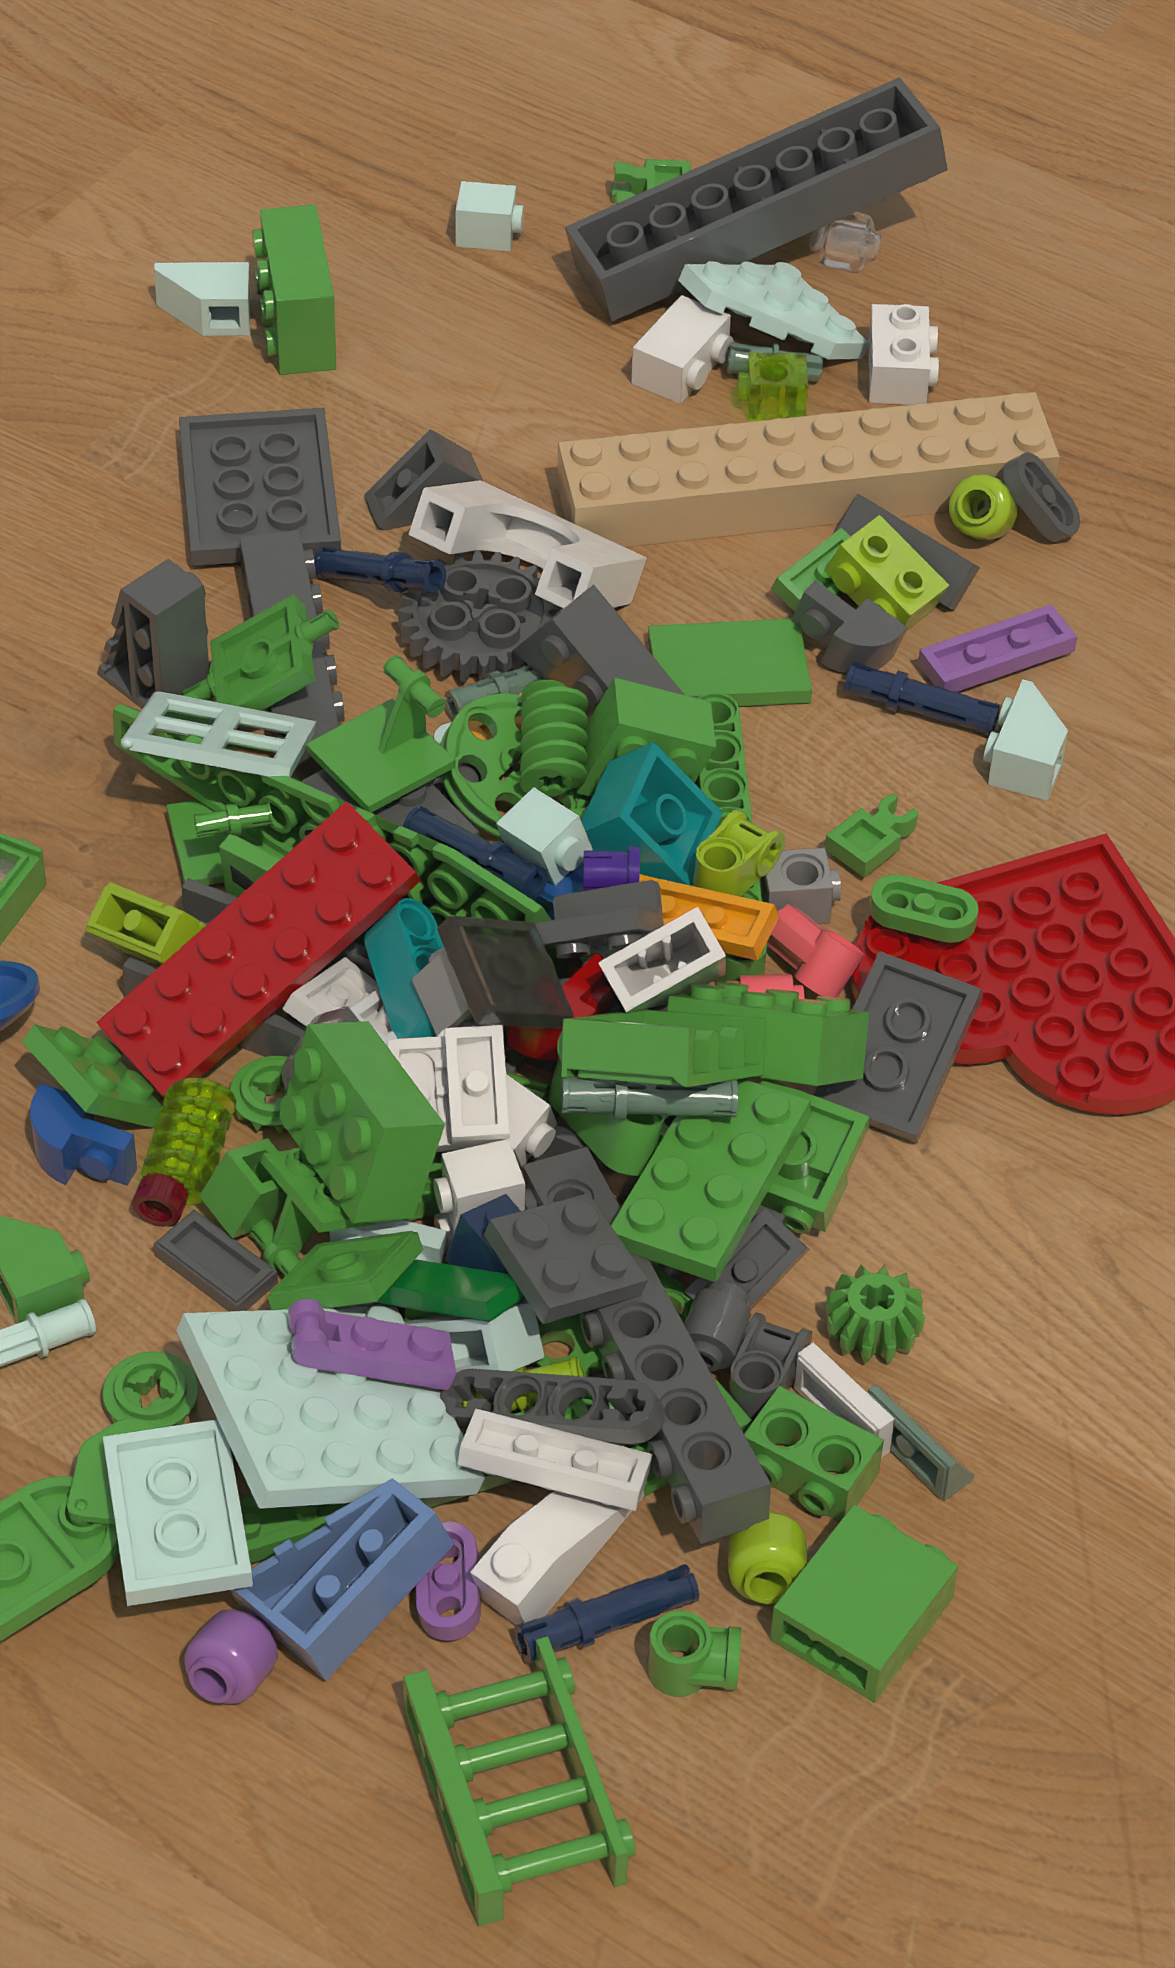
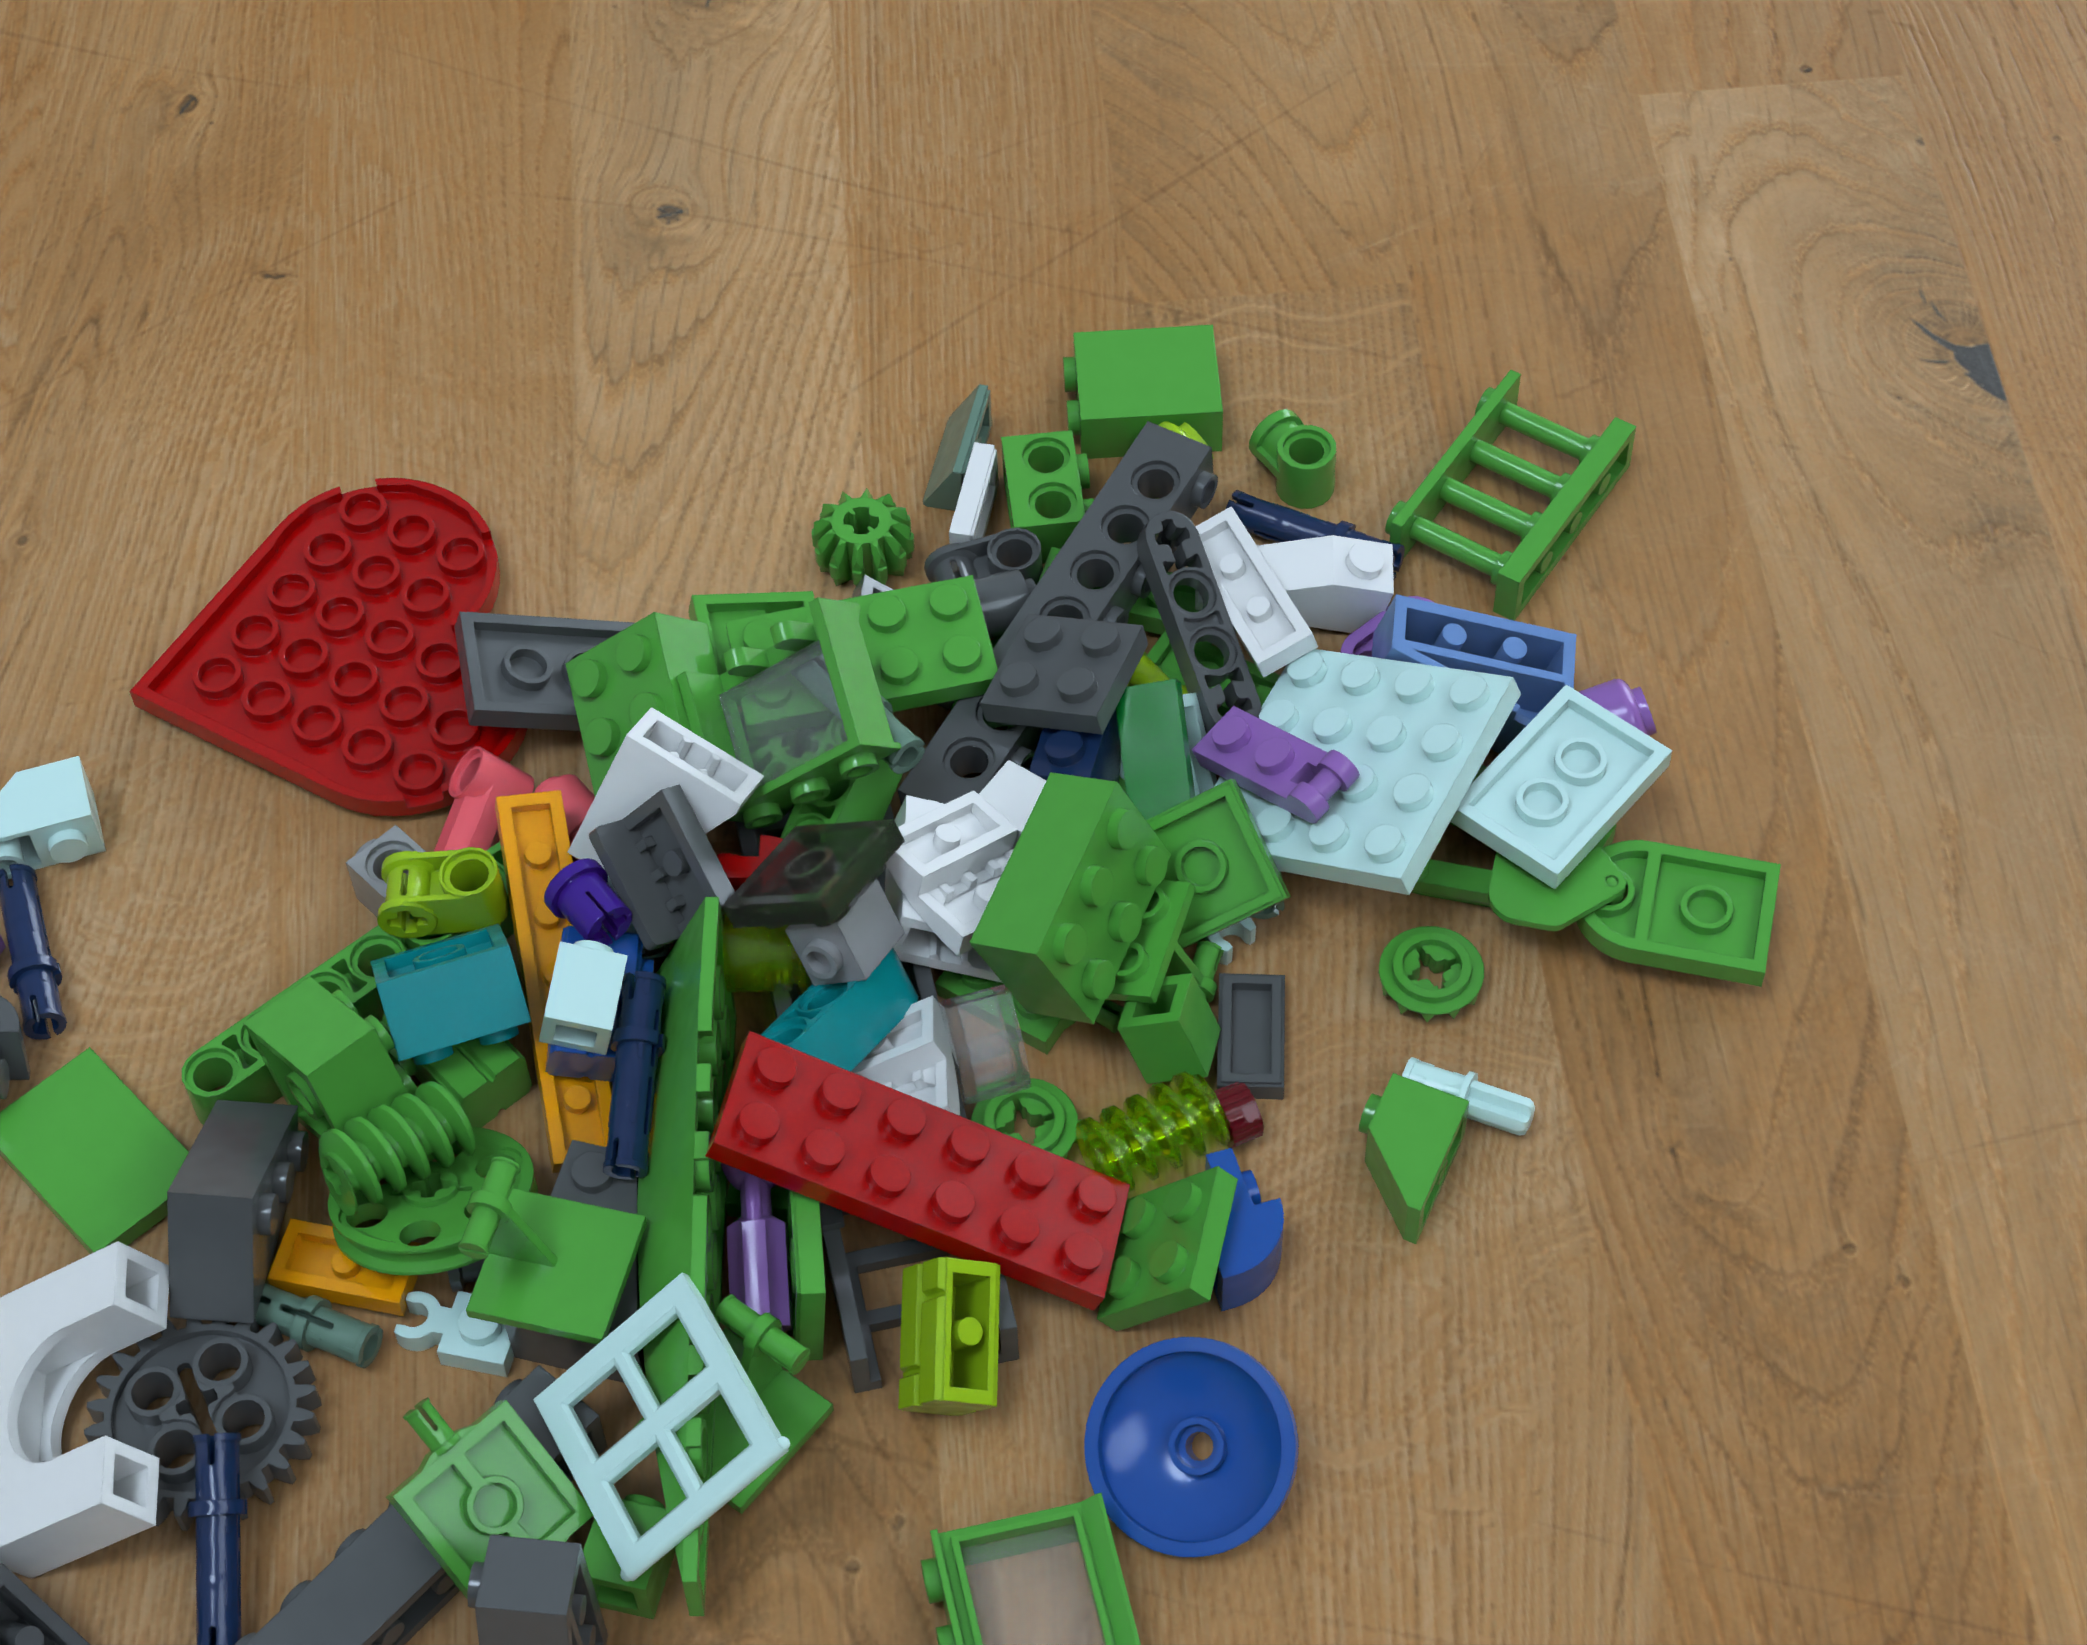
camera: 125 degrees left, 5 degrees up
(869, 839) = (277, 878): bright green plate -> none
(923, 908) = (367, 747): bright green plate -> none

